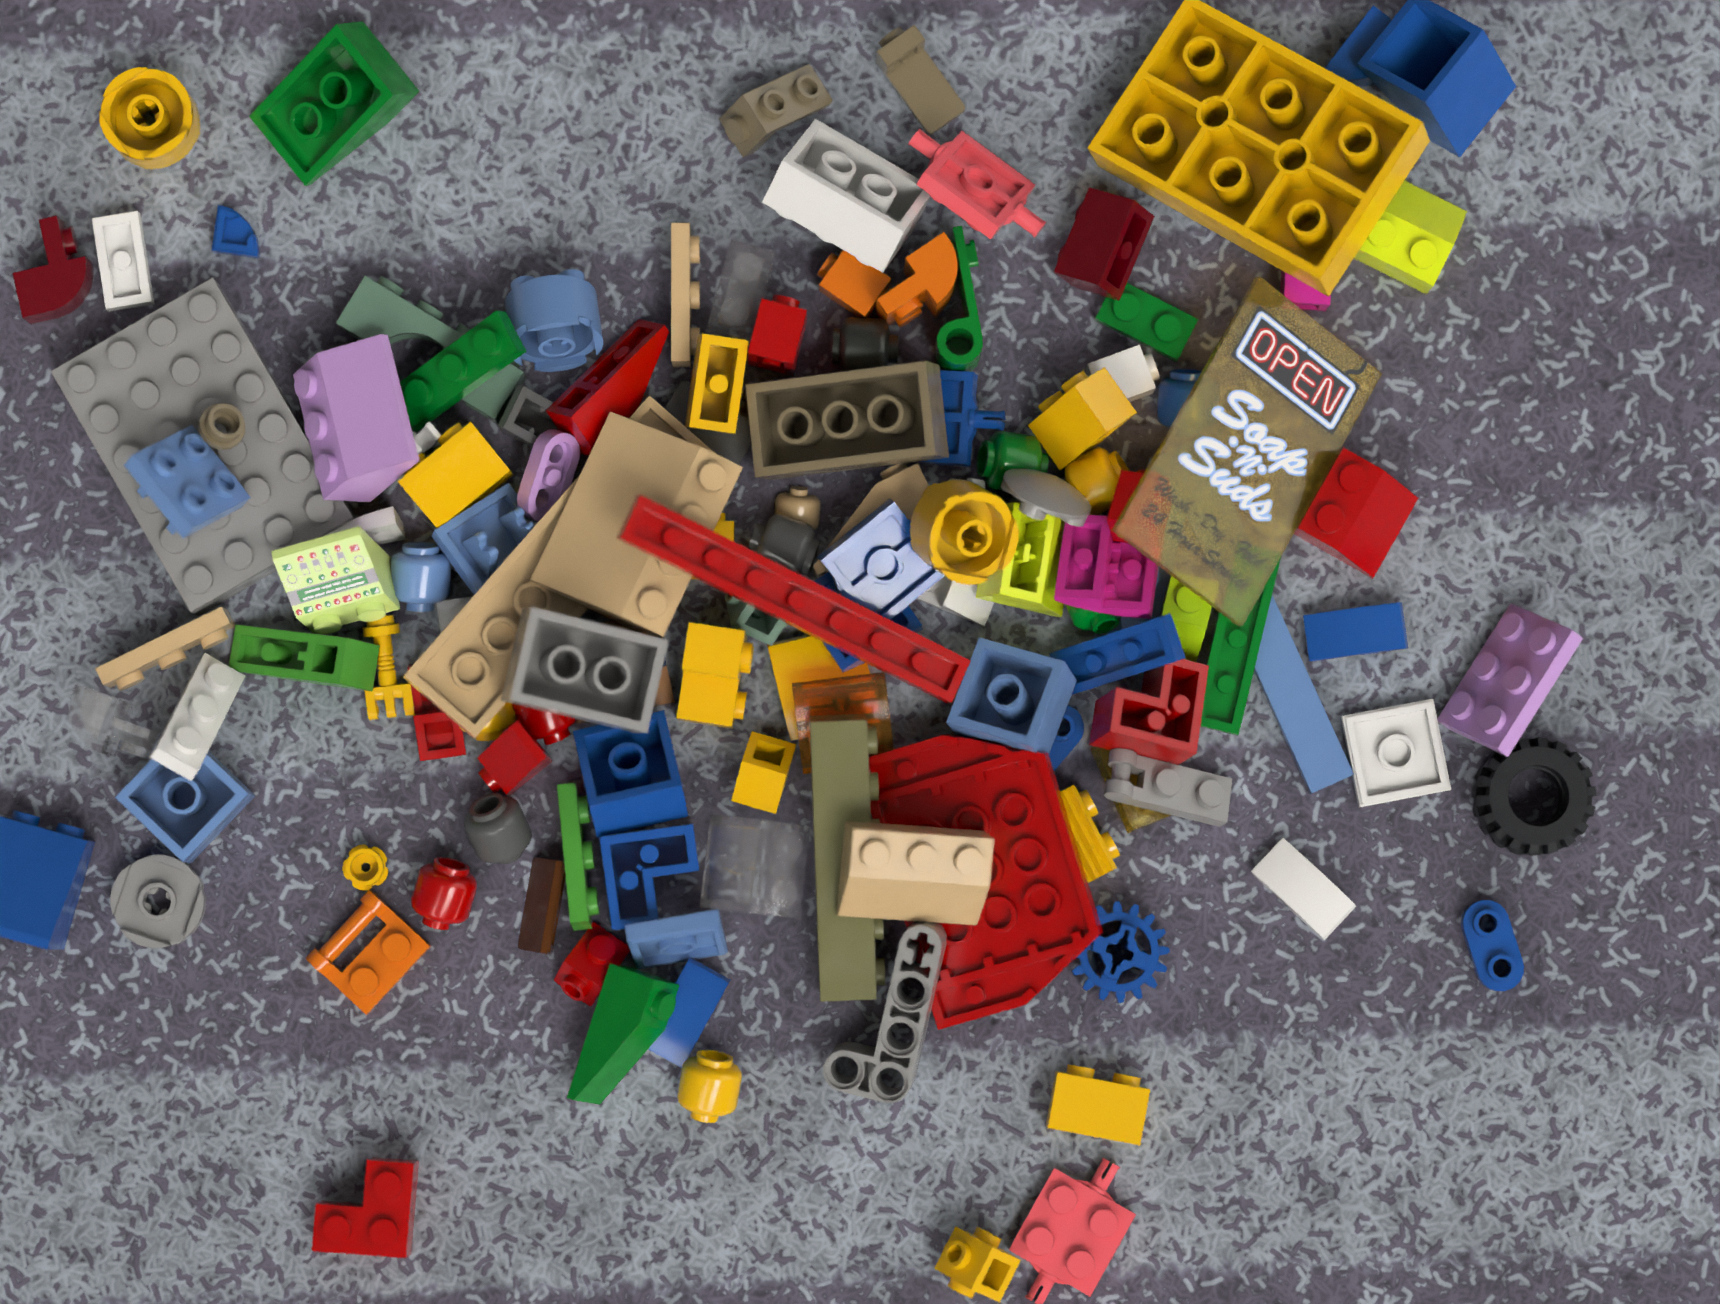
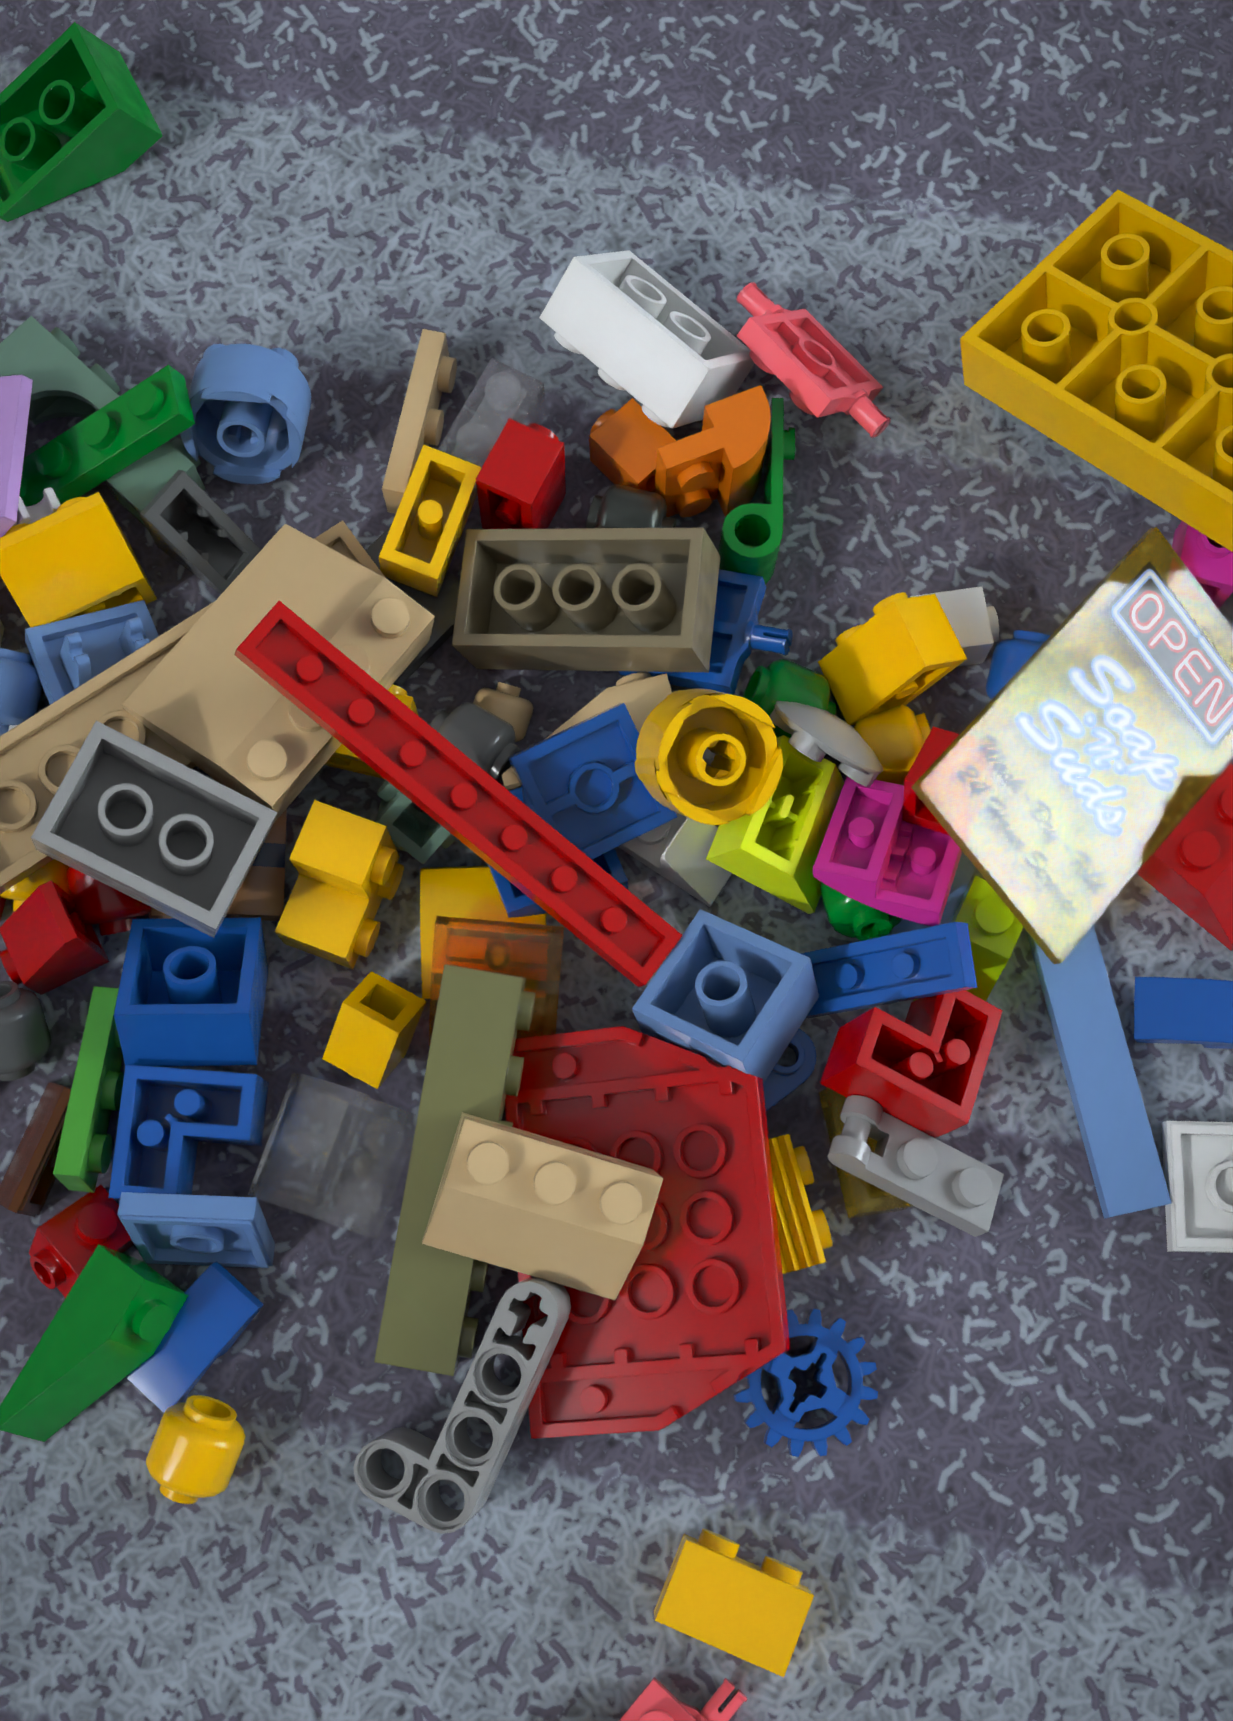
camera: 15 degrees right, 10 degrees down
(547, 473) = (182, 588): lavender plate -> none
(610, 384) = (305, 502): red slope -> none
(773, 107) = (575, 228): dark tan bracket -> none
(918, 79) = (759, 233): dark tan bracket -> none
(1103, 243) = (957, 462): dark red brick -> none
(1148, 321) = (978, 557): green plate -> none
(1232, 665) = (1034, 1017): green plate -> none
(1303, 888) = (1077, 1348): white slope -> none

